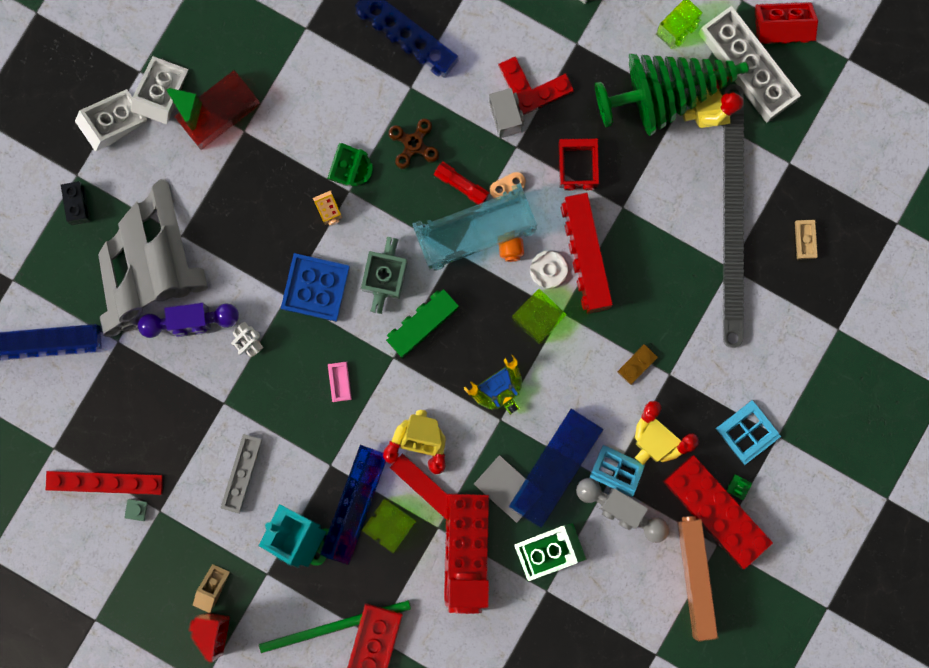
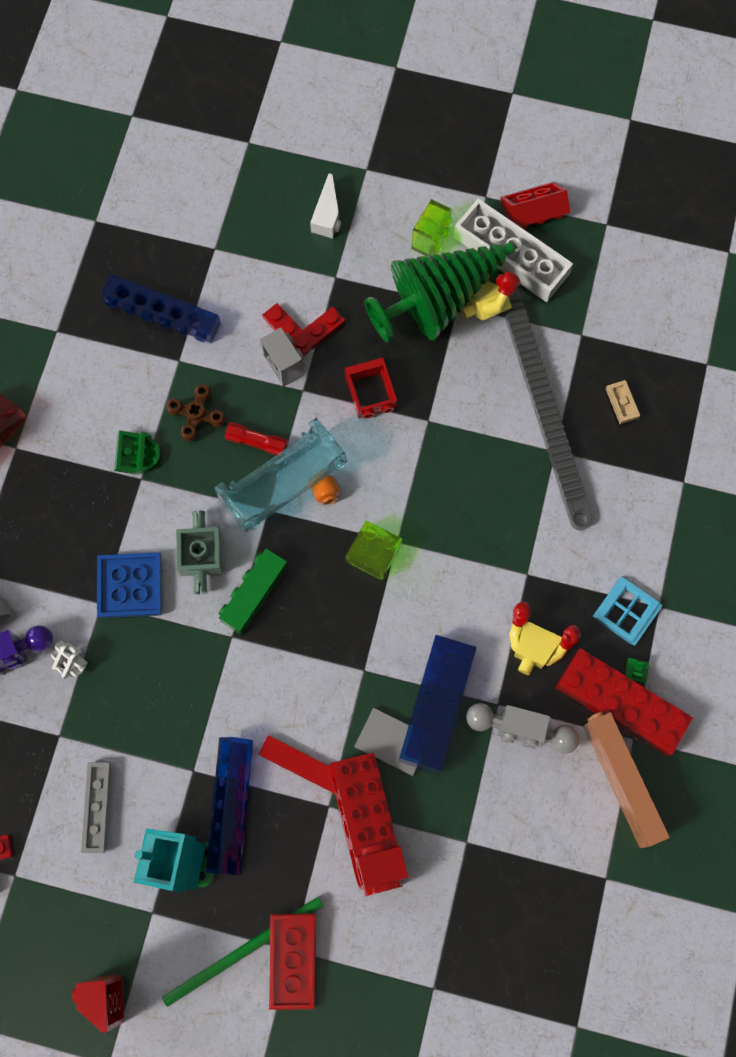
camera: 20 degrees left, 10 degrees down
(210, 588) = (91, 948): tan slope -> none
(327, 208) = (121, 498): light nougat slope -> none
(339, 382) = (180, 678): bright pink tile -> none
(389, 525) = (274, 817): clear neon green piece -> none
(421, 436) = (282, 709): light yellow torso -> none
(499, 388) = (354, 636): torso -> none
(506, 183) = (301, 426): light nougat plate -> none
(548, 269) = (370, 501): white tile -> none
(550, 552) = (458, 797): green slope -> none
(587, 253) = (406, 473): red brick -> none
(611, 481) = (503, 699): medium azure piece -> none
(637, 364) = (490, 573): pearl gold plate -> none

